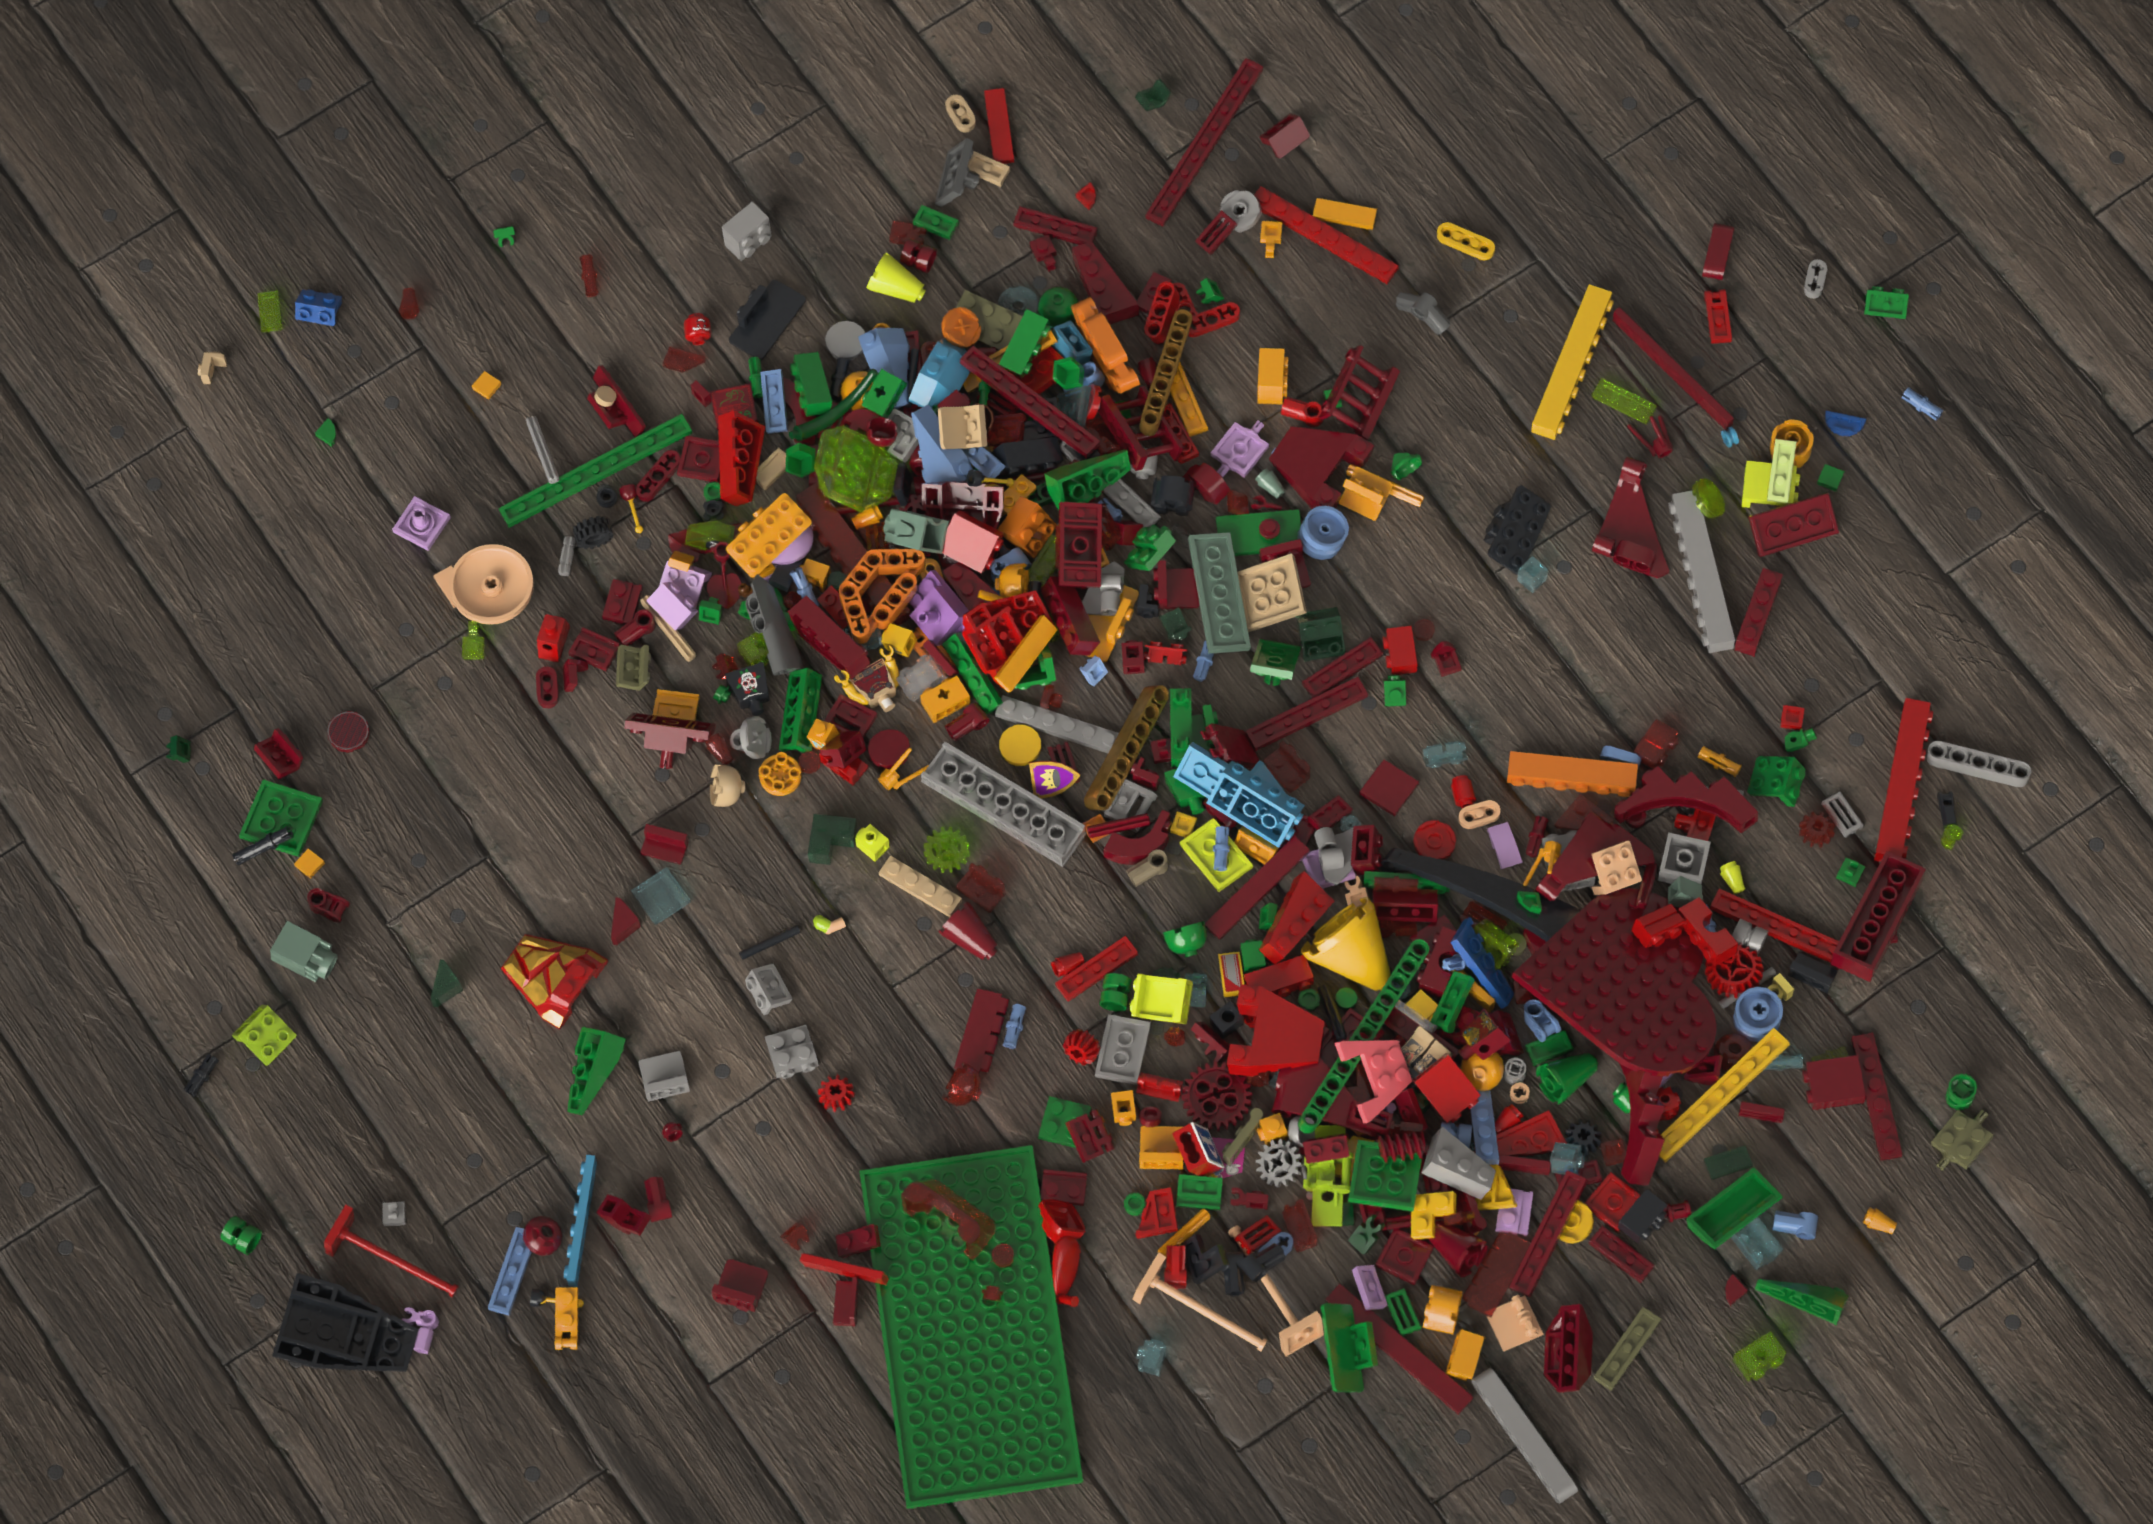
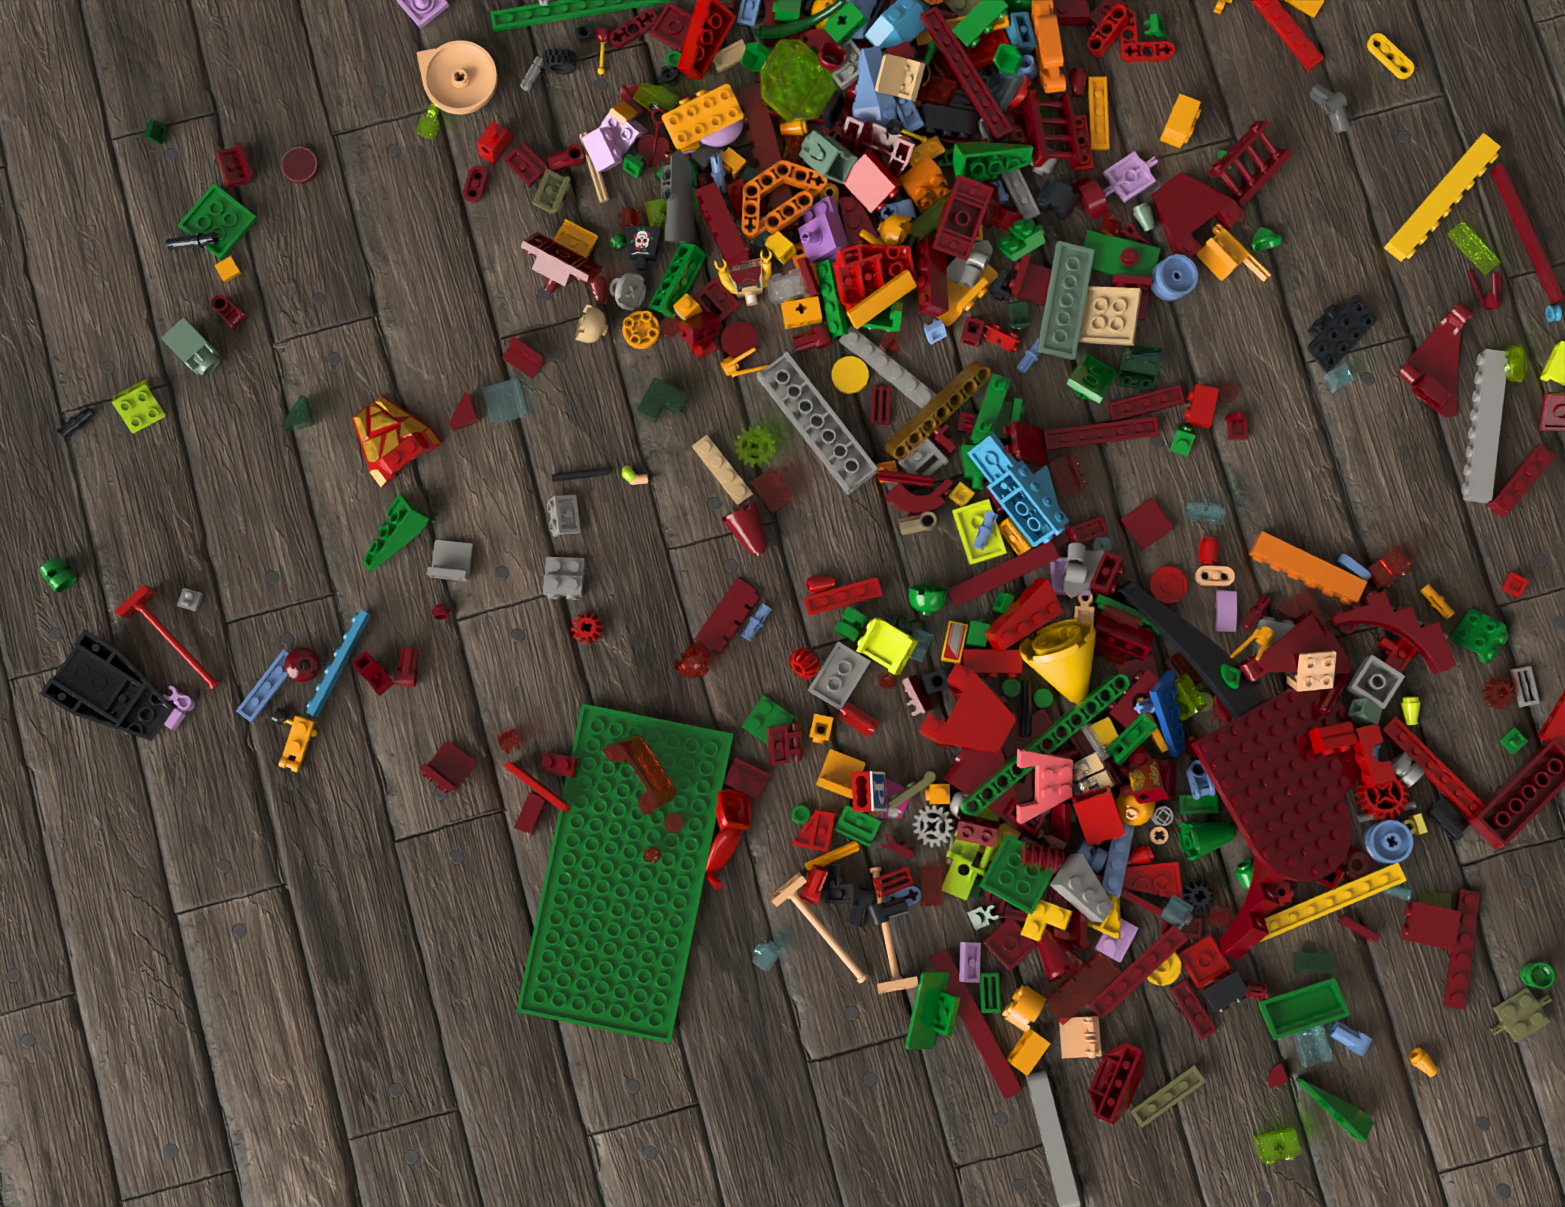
camera: 20 degrees right, 15 degrees up
(570, 671) = (501, 173): dark red tile -> none
(622, 601) = (564, 130): dark red plate -> none
(872, 842) = (695, 417): neon yellow brick -> none
(1051, 778) = (864, 415): shield -> none
(1150, 1117) = (841, 743): dark red tile -> none
(1165, 380) = (1086, 93): pearl gold beam -> none
(1223, 1114) = (902, 764): dark red gear -> none
(1300, 410) = (1193, 160): red piece -> none
(1803, 738) = (1516, 606): green piece -> none

